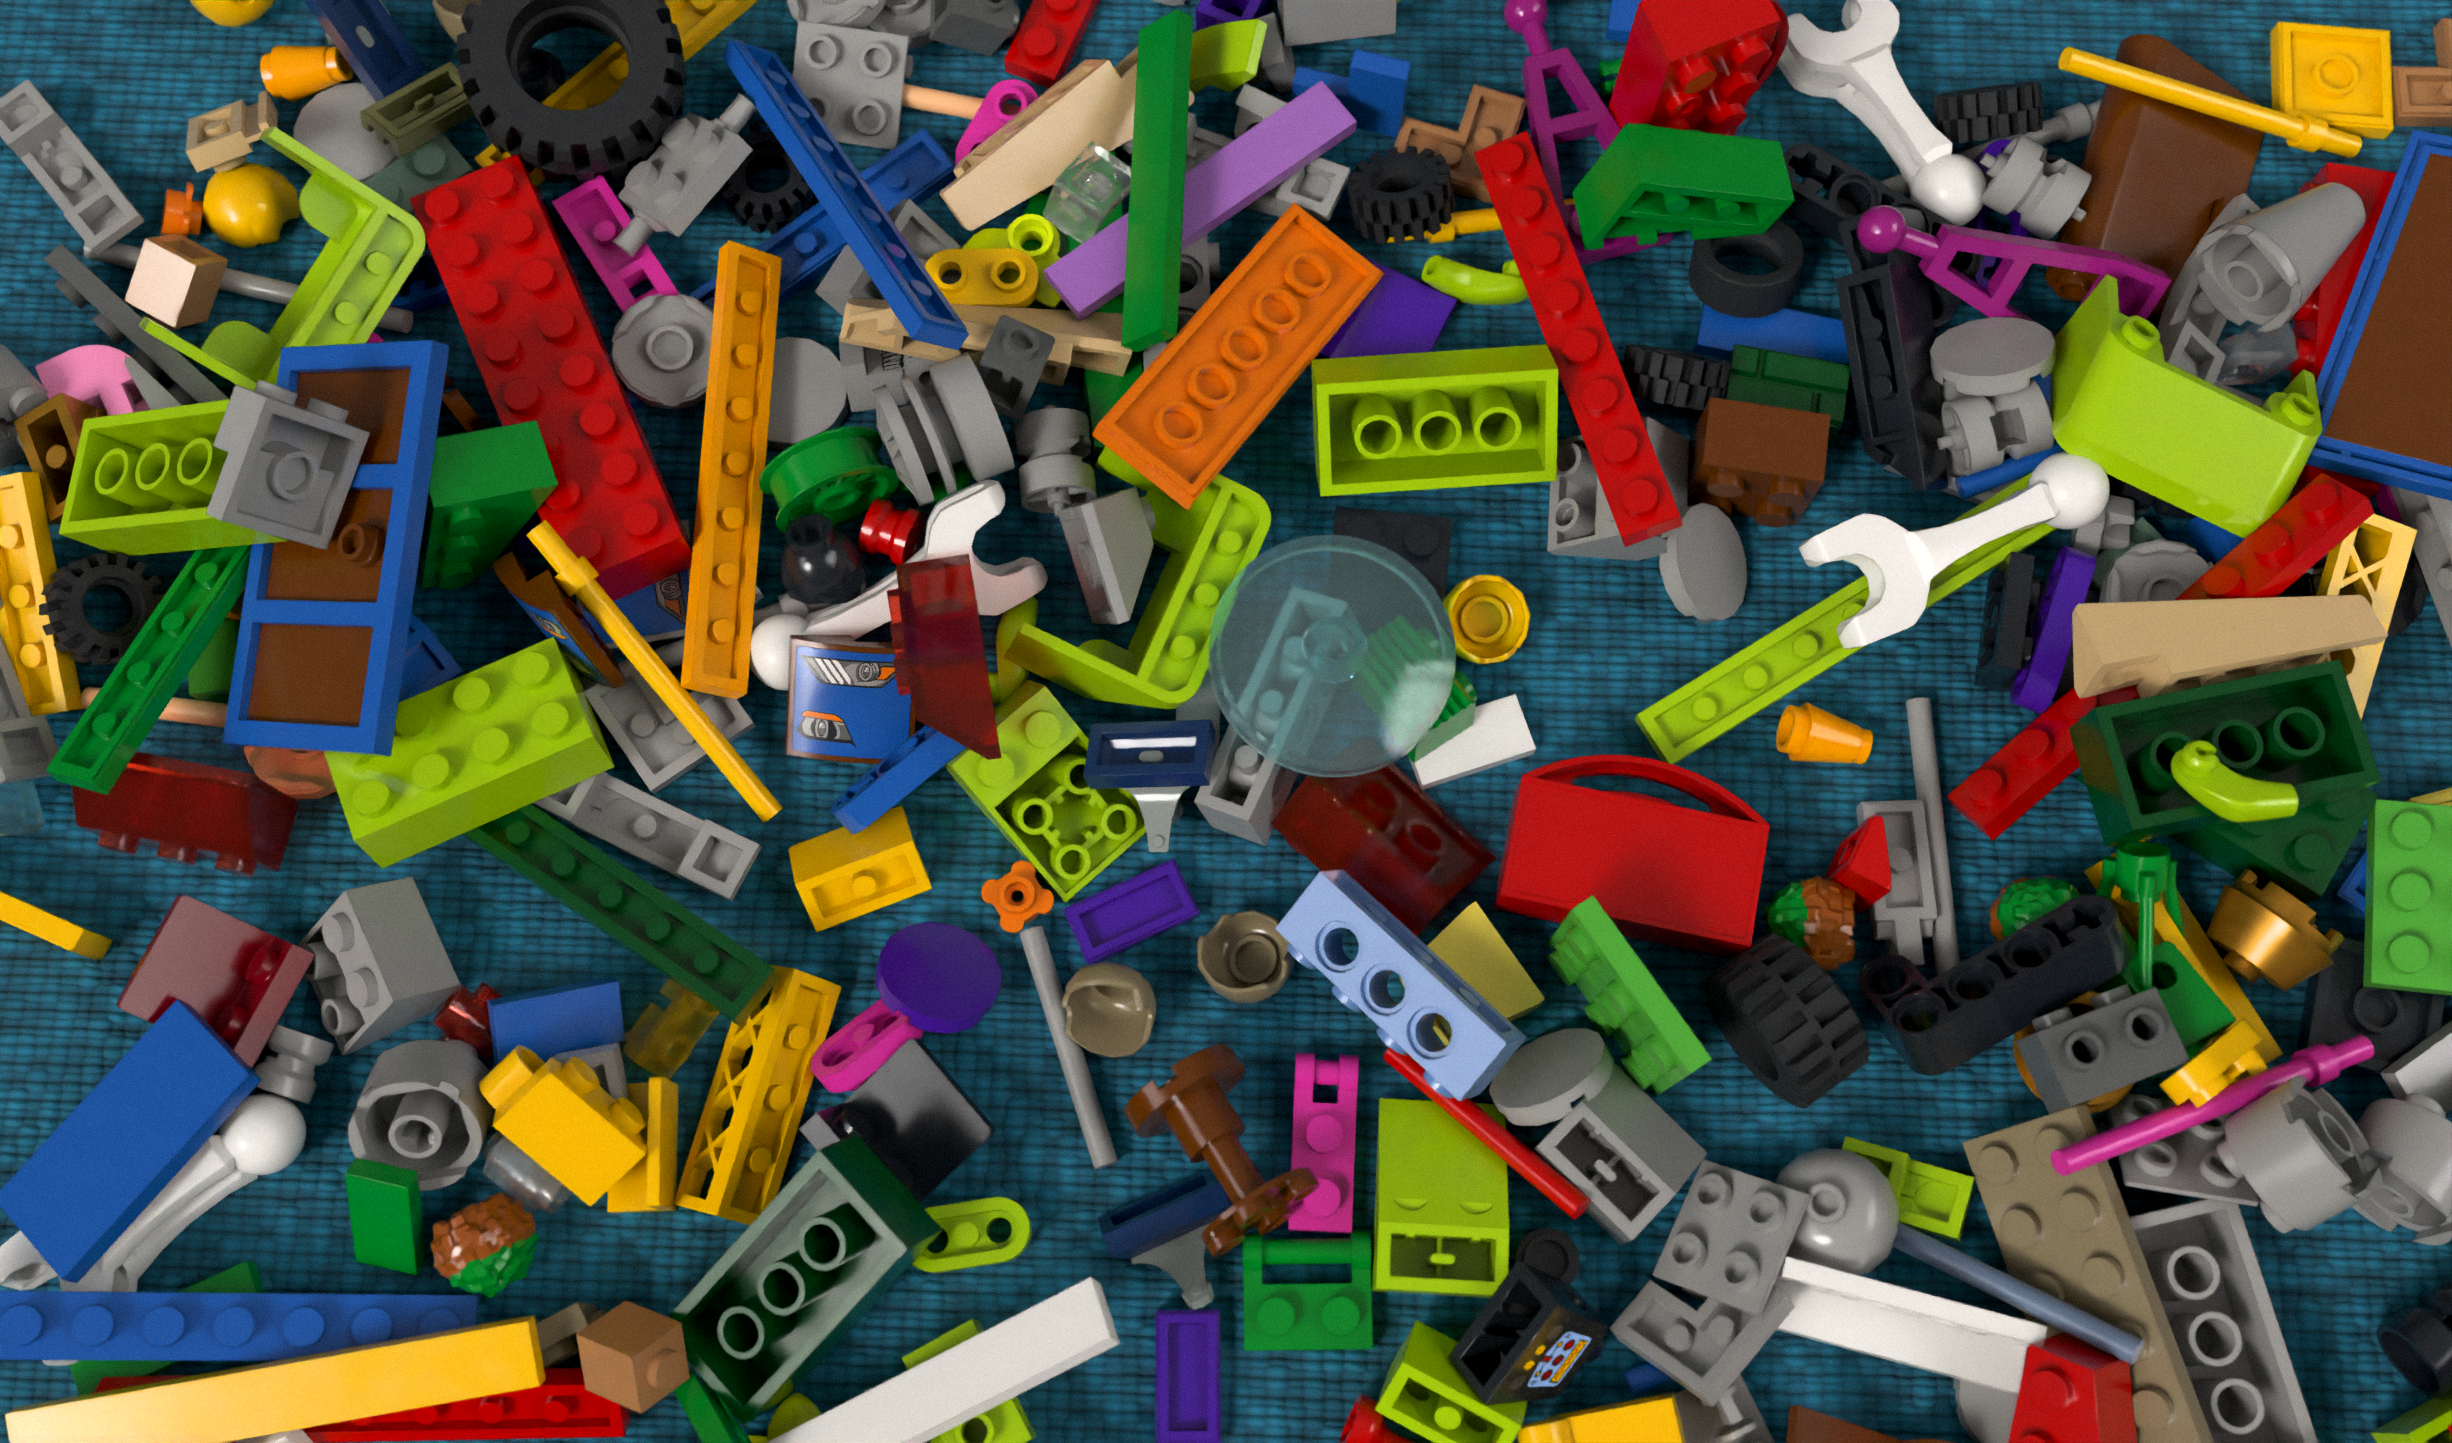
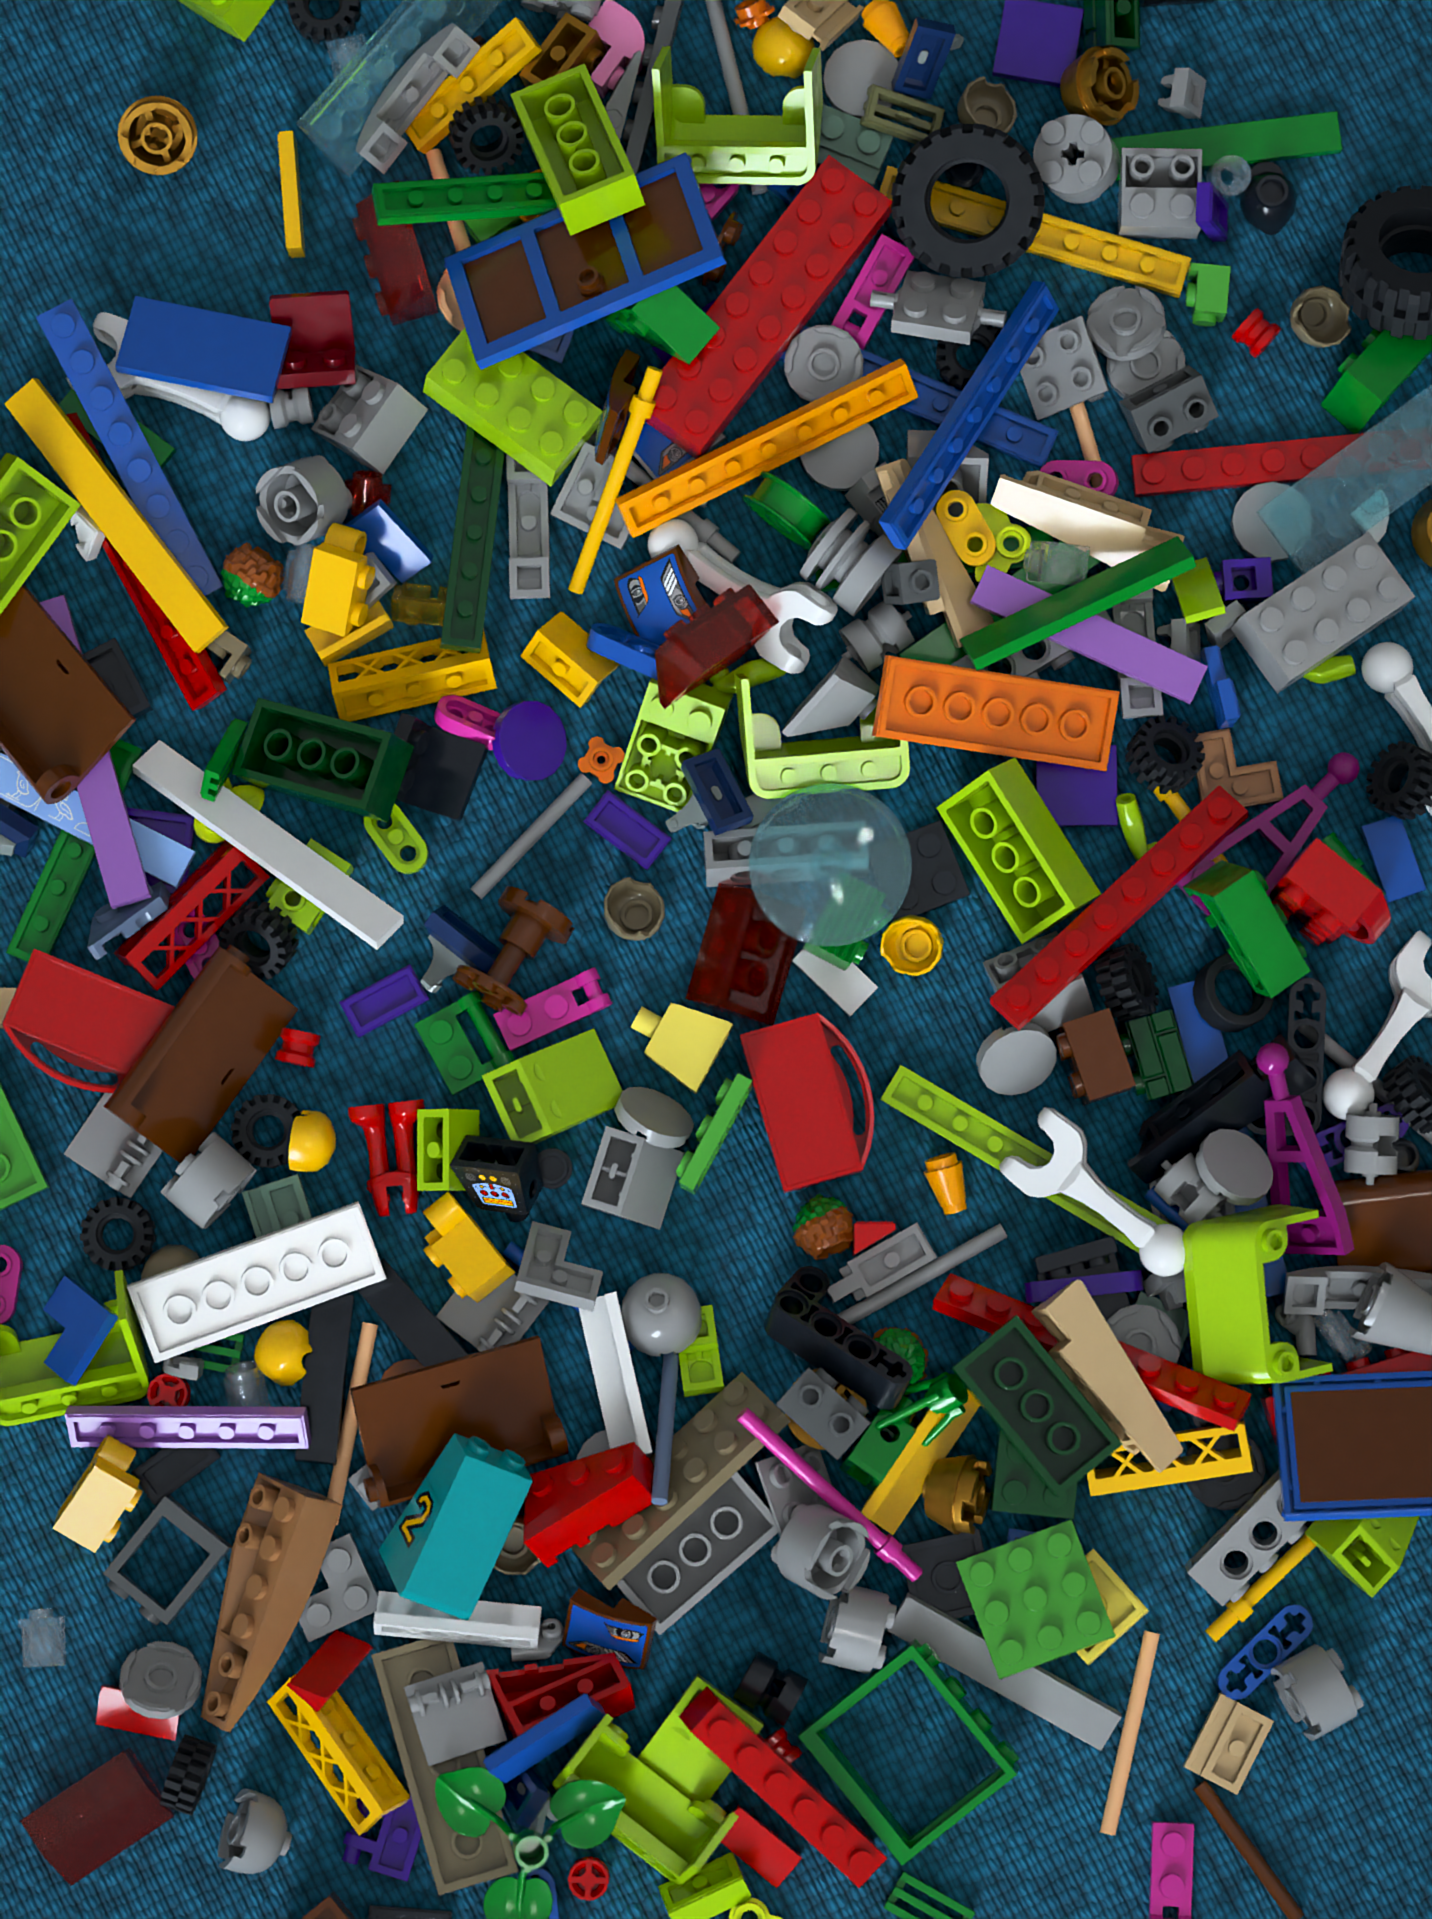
camera: 65 degrees right, 10 degrees up
(175, 281) = (706, 42): brick -> none
(285, 464) = (608, 218): light grey plate -> none
(386, 1216) = (237, 513): green tile -> none
(633, 1356) = (235, 693): medium nougat brick -> none
(821, 562) = (736, 535): black piece -> none
(891, 531) = (781, 563): red wheel -> none
(1109, 1009) = (562, 848): dark tan hair -> none
(1480, 1033) = (664, 1022): medium blue brick -> none
(1497, 1139) = (605, 1095): red bar -> none
(1731, 1237) = (615, 1260): light grey hinge -> none
(1787, 1020) = (753, 1232): black tyre -> none
(2202, 1077) = (836, 1473): yellow plate -> none
(2226, 792) = (999, 1408): lime arm -> none

